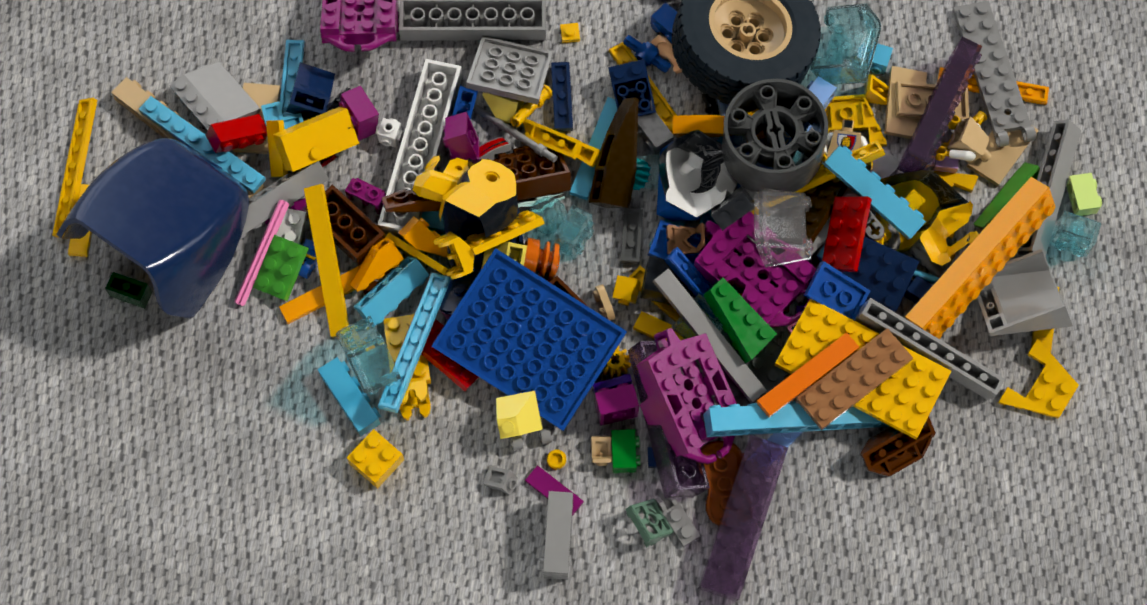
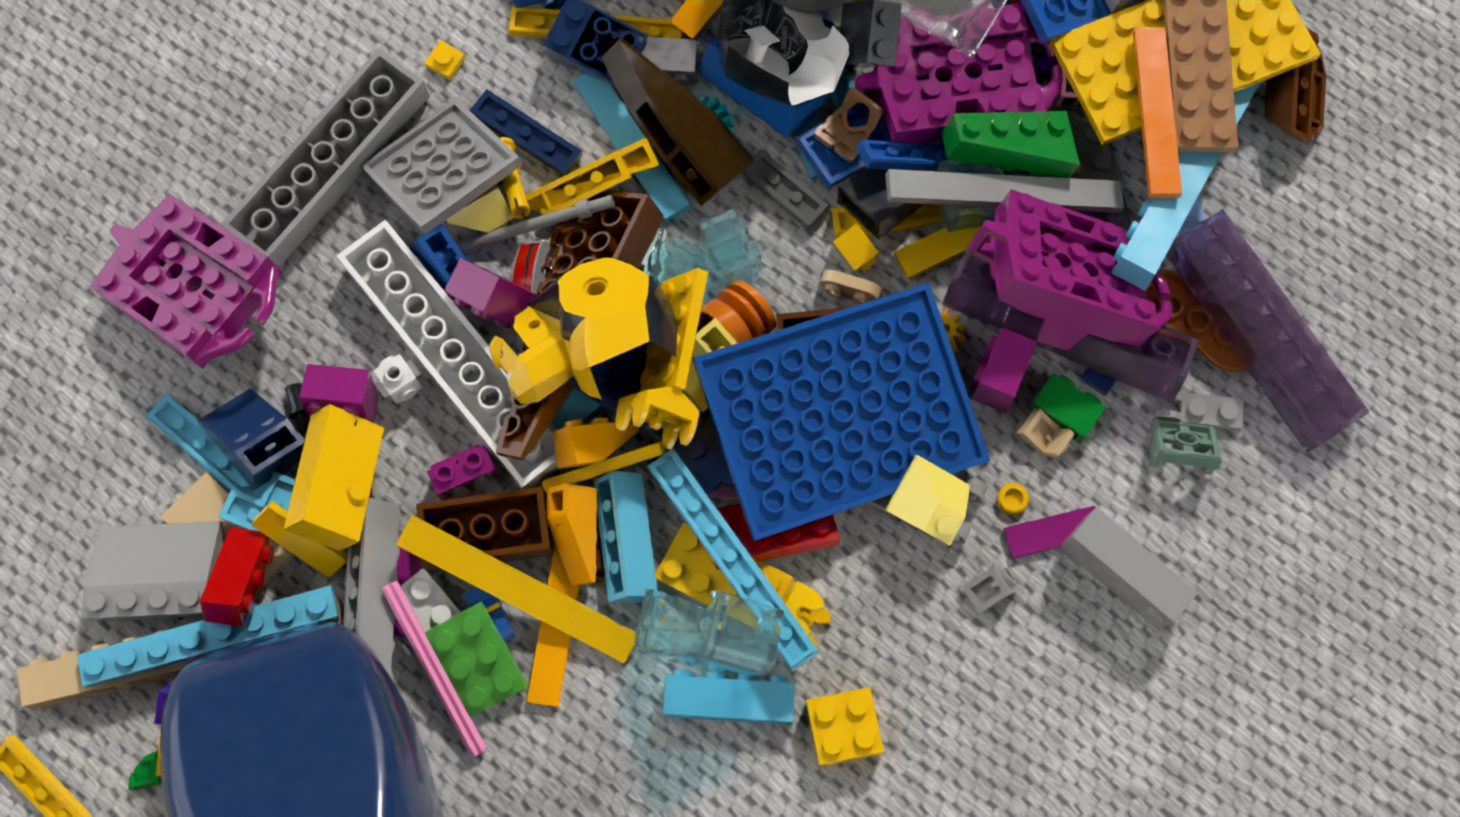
camera: 50 degrees left, 5 degrees up
(612, 383) = (975, 347): dark purple plate -> none

